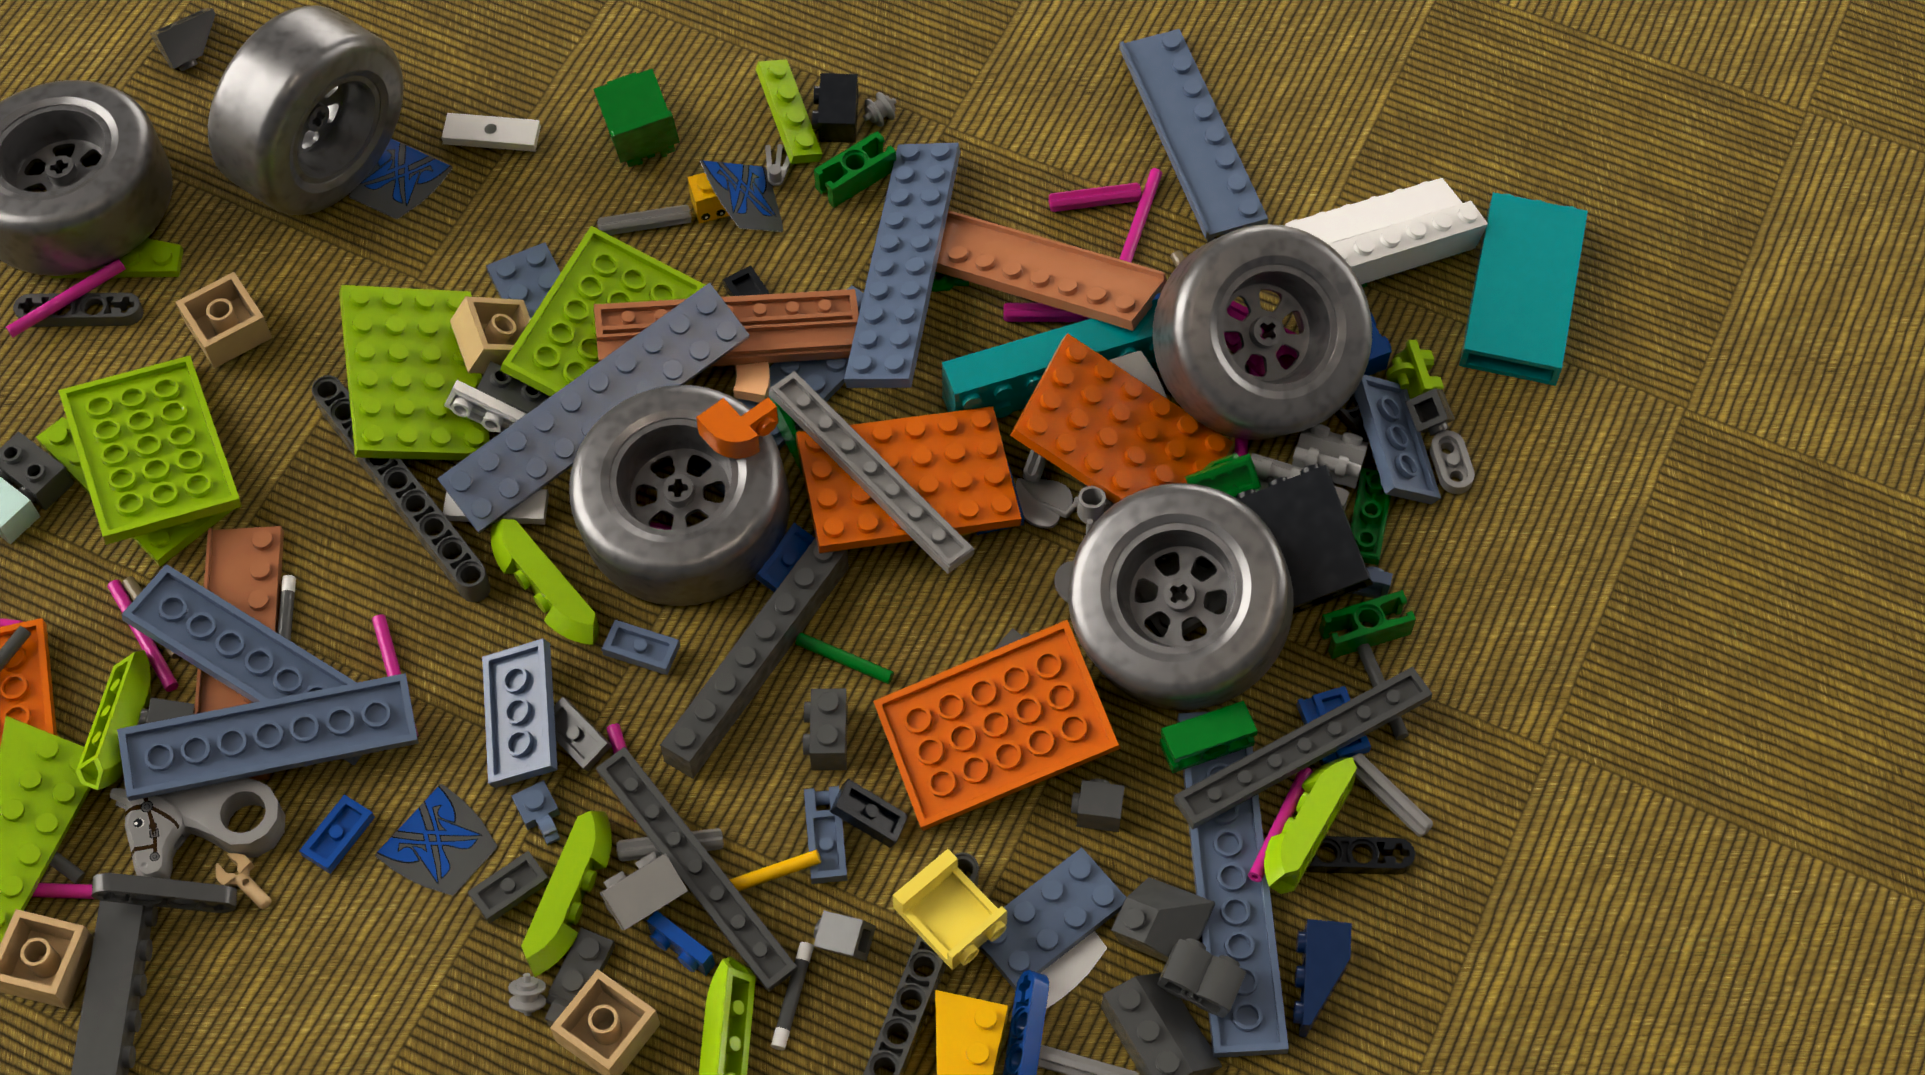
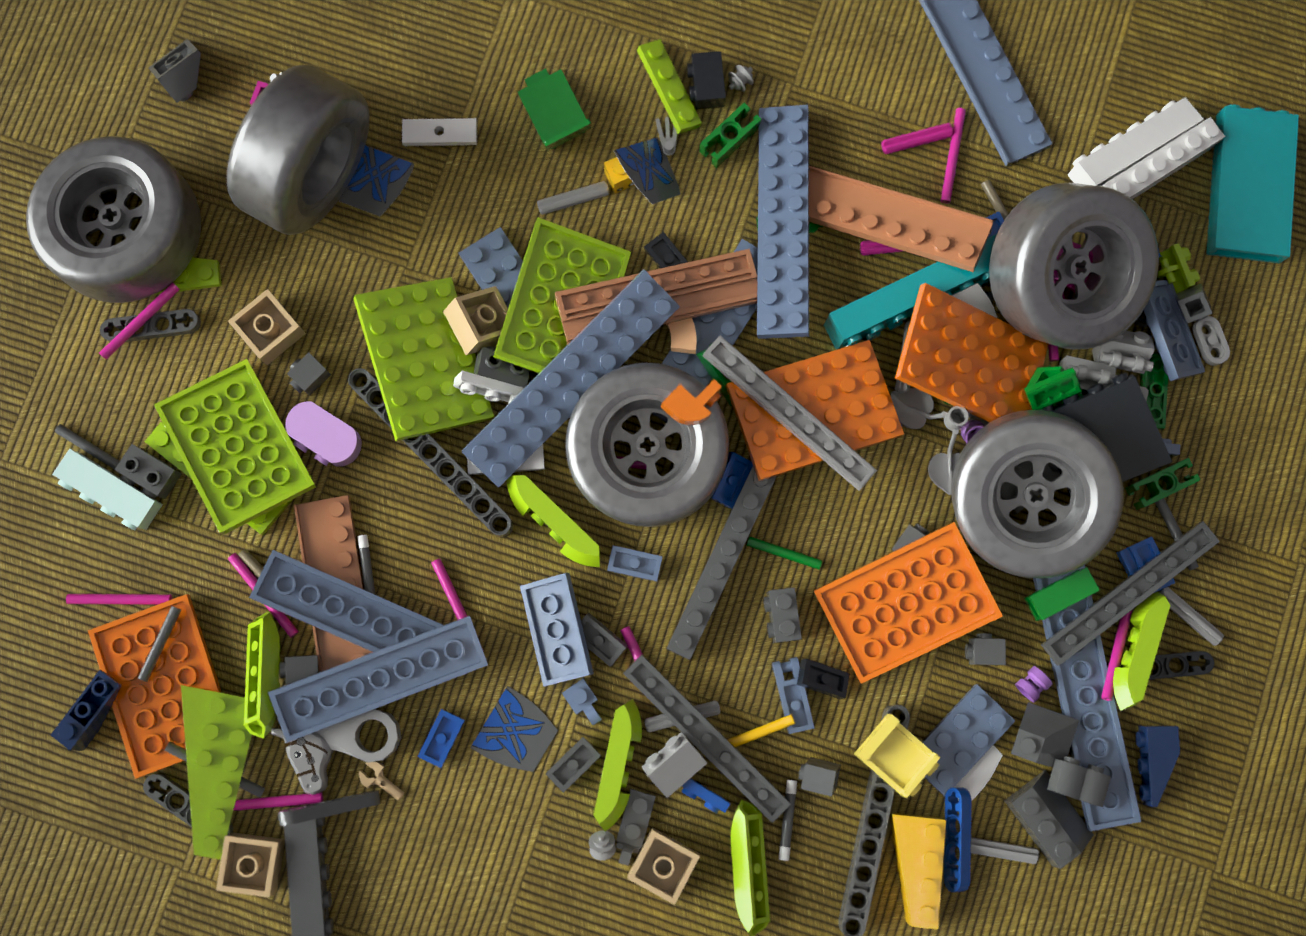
camera: 10 degrees left, 20 degrees up
(263, 381) = (307, 374): none -> dark grey brick
(266, 451) = (323, 434): none -> lavender brick
(1159, 854) = (1033, 684): none -> medium lavender wheel

